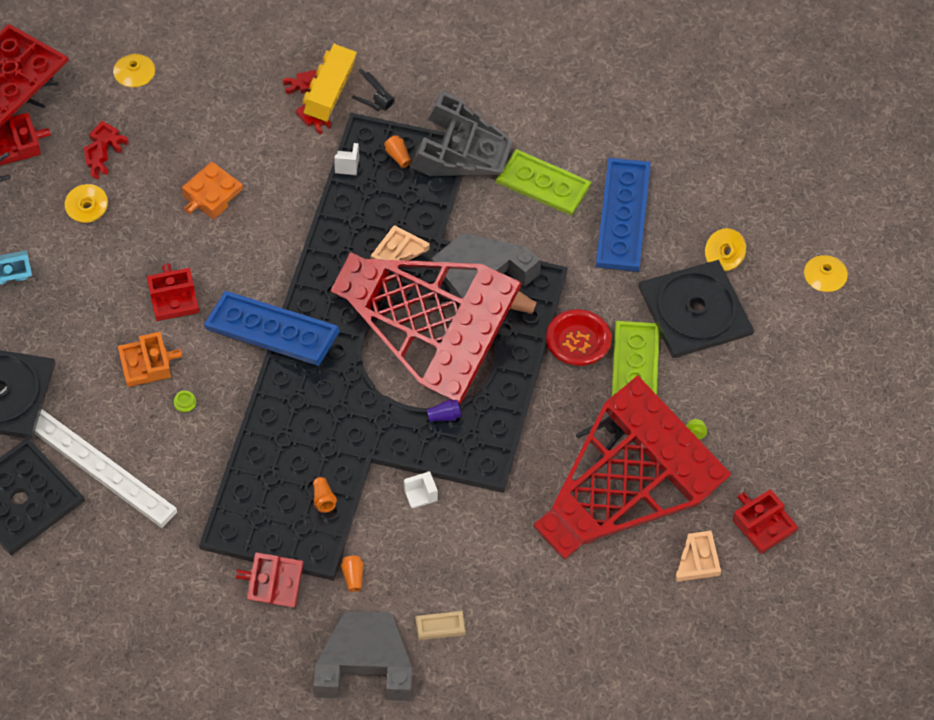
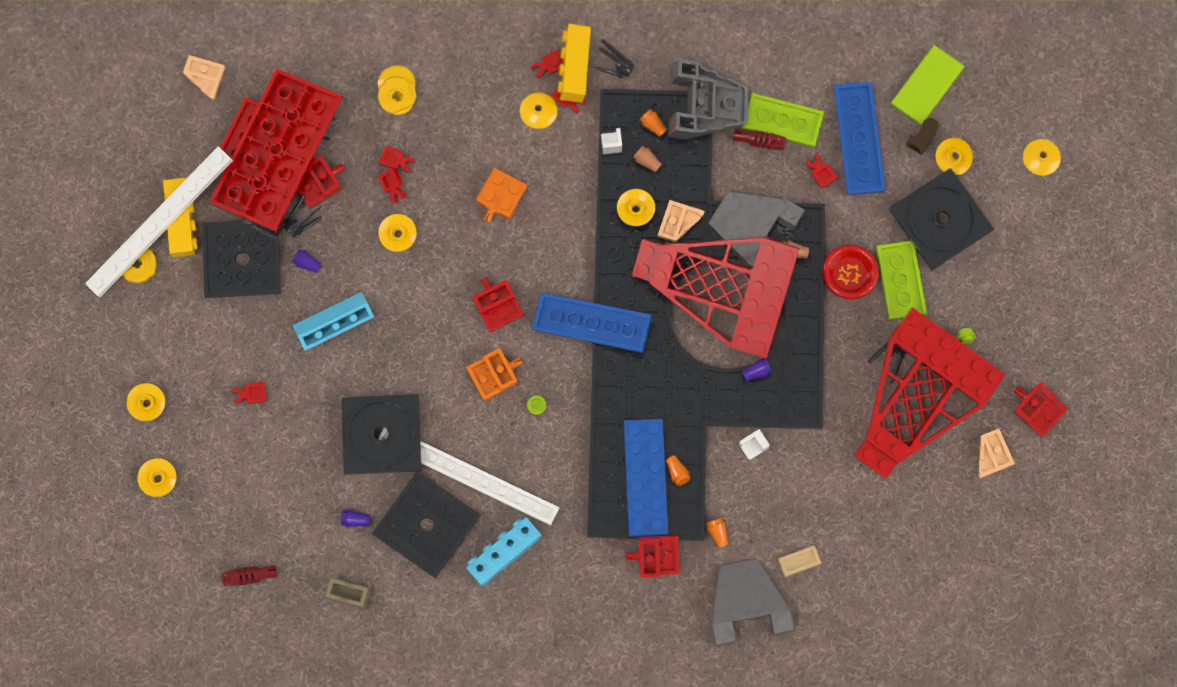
camera: 10 degrees left, 20 degrees up
(98, 541) = (504, 551): none -> medium azure brick
(119, 69) = (388, 88): none -> yellow plate
(280, 129) = (542, 118): none -> yellow dish
(284, 495) = (645, 477): none -> blue plate
(352, 219) = (636, 198): none -> yellow dish
(380, 182) = (647, 159): none -> nougat cone
(512, 193) = (760, 139): none -> dark red hinge
(572, 240) = (822, 173): none -> red plate
(696, 226) = (927, 132): none -> dark brown leg
(713, 180) = (927, 85): none -> lime tile

